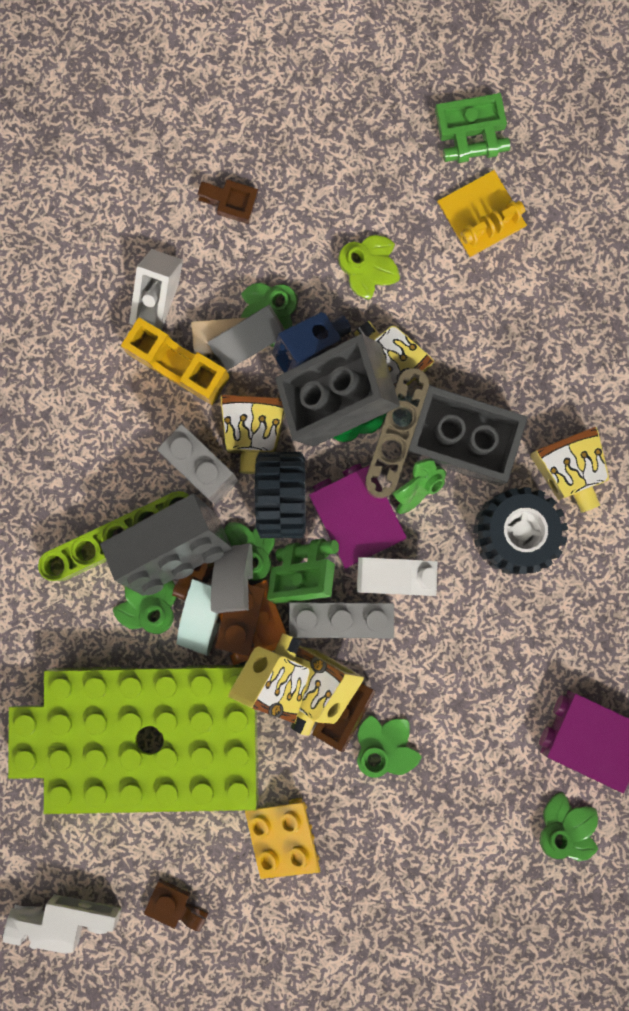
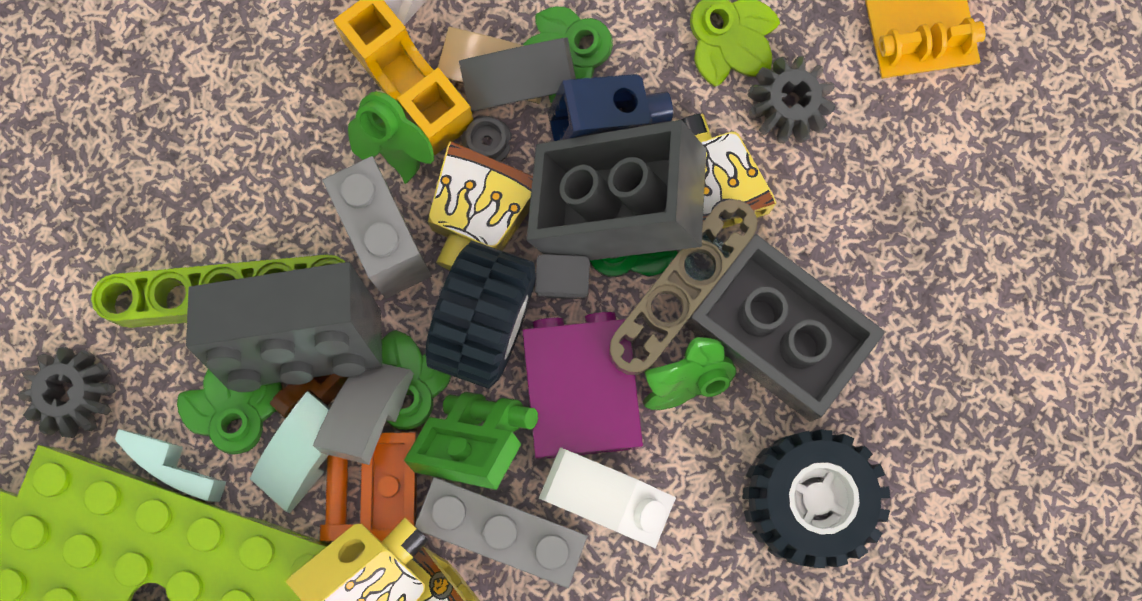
camera: 20 degrees right, 5 degrees down
(33, 635) = (83, 395): none -> dark grey gear
(119, 653) = (161, 461): none -> light aqua slope
(177, 401) = (385, 130): none -> bright green plate
(239, 627) = (349, 486): reddish brown plate -> none
(244, 376) = (492, 128): none -> dark grey plate
(320, 453) = (562, 276): none -> dark grey slope
(409, 282) = (805, 113): none -> dark grey gear
(574, 467) = (929, 433): torso -> none

